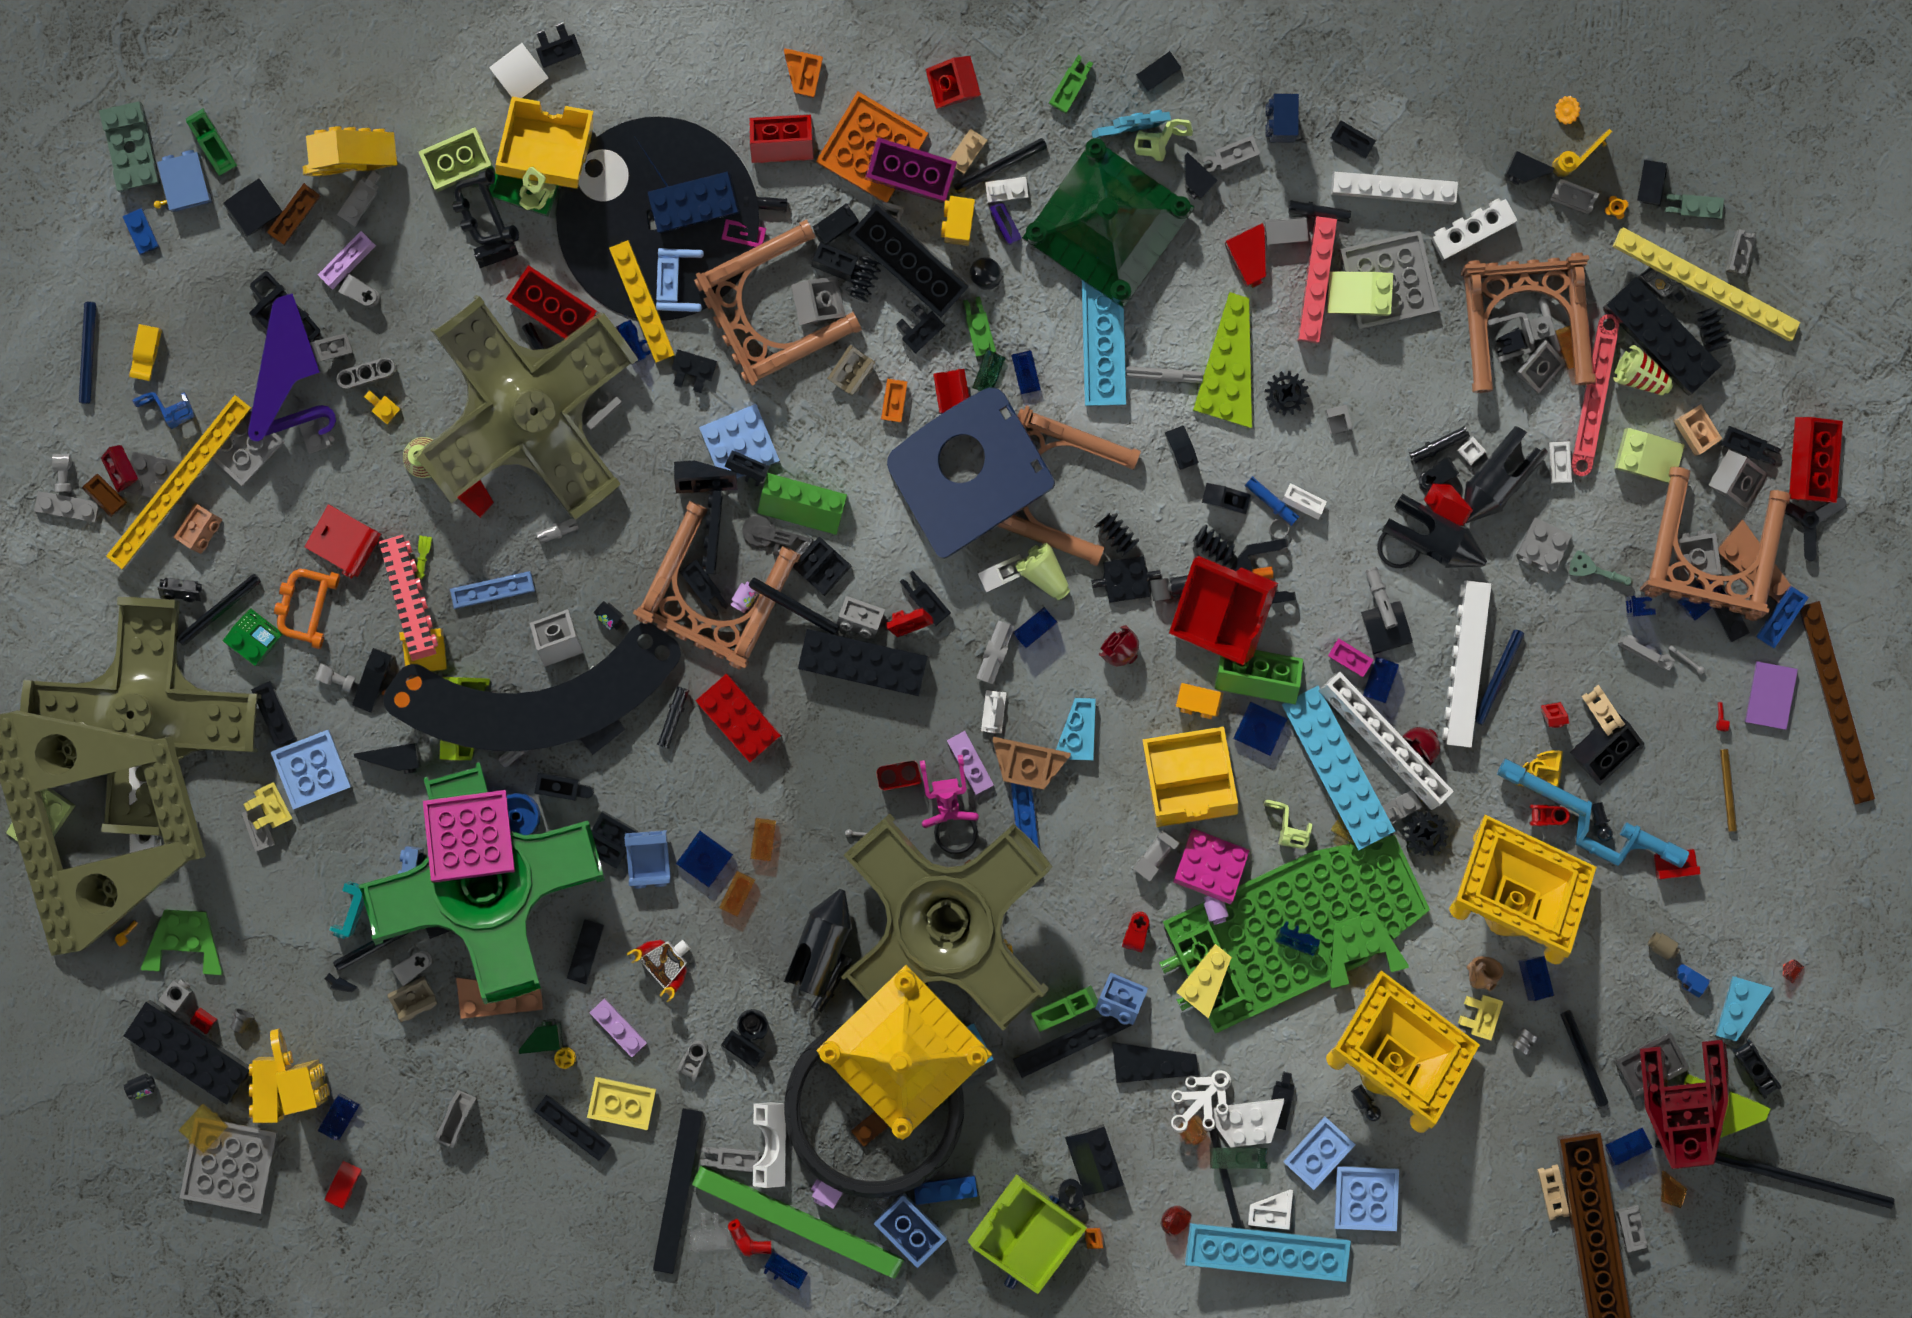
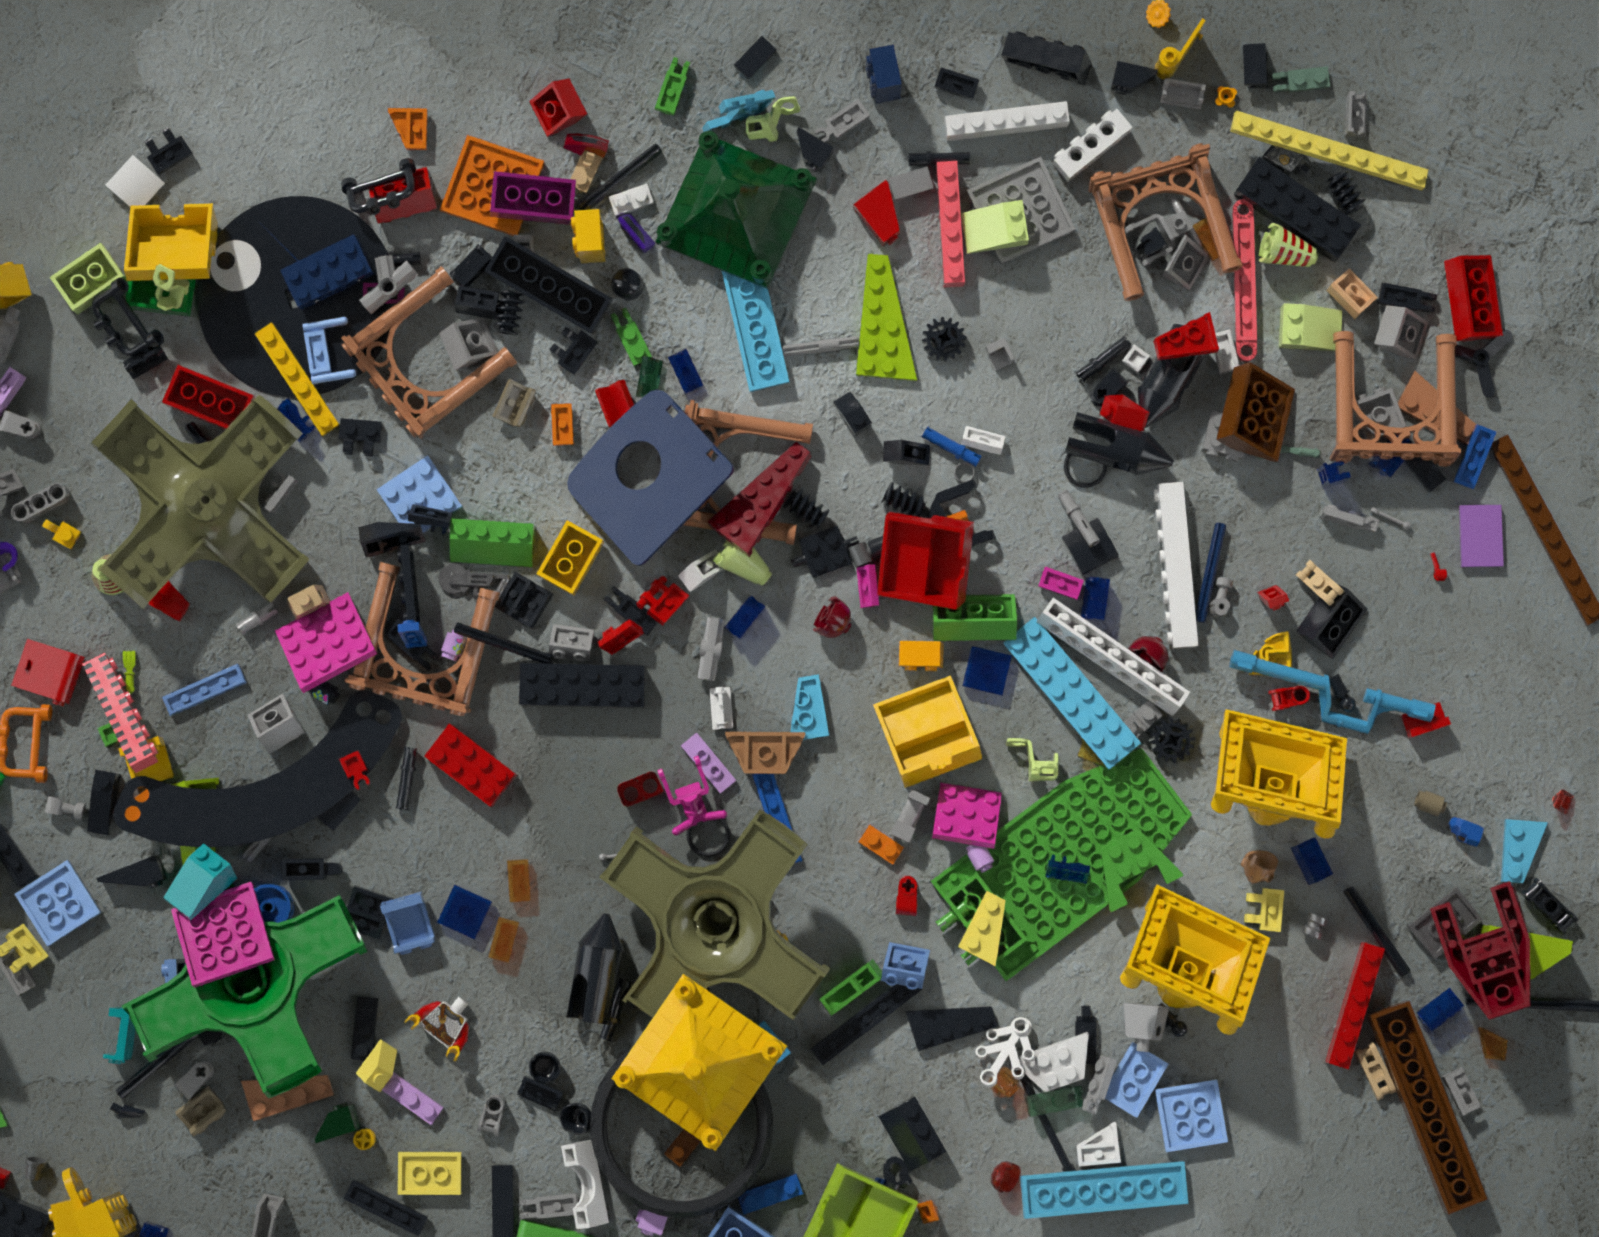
camera: 10 degrees left, 5 degrees down
(390, 615) = (108, 735): none -> bright green tile
(455, 780) = (199, 881): none -> teal slope
(592, 991) = (378, 1066): none -> light yellow slope
(611, 525) = (308, 601): none -> tan torso
(621, 569) = (326, 642): none -> dark pink plate
(625, 697) = (353, 767): none -> red plate
(708, 580) = (412, 634): none -> blue plate
(750, 216) = (387, 274): none -> light grey piece
(772, 144) = (392, 199): none -> black bar
(773, 1080) = (576, 1118): none -> black hair
(876, 535) = (570, 558): none -> yellow brick
(961, 600) = (667, 604): none -> red plate
(968, 122) = (580, 142): none -> dark red slope
(1070, 520) = (758, 503): none -> dark red wing
(1121, 876) = (881, 844): none -> orange plate
(1161, 622) = (867, 586): none -> dark pink plate
(1284, 1150) = (1099, 1084): none -> light grey hinge
(1340, 1101) = (1144, 1023): none -> light grey torso
(1448, 131) = (1047, 56): none -> black wedge
(1501, 711) = (1221, 605): none -> light grey leg
(1529, 447) = (1191, 339): none -> red wing
(1547, 1126) = (1354, 1005): none -> red brick
(1577, 530) = (1255, 412): none -> reddish brown slope
(1728, 790) = (1459, 637): pearl gold bar -> none

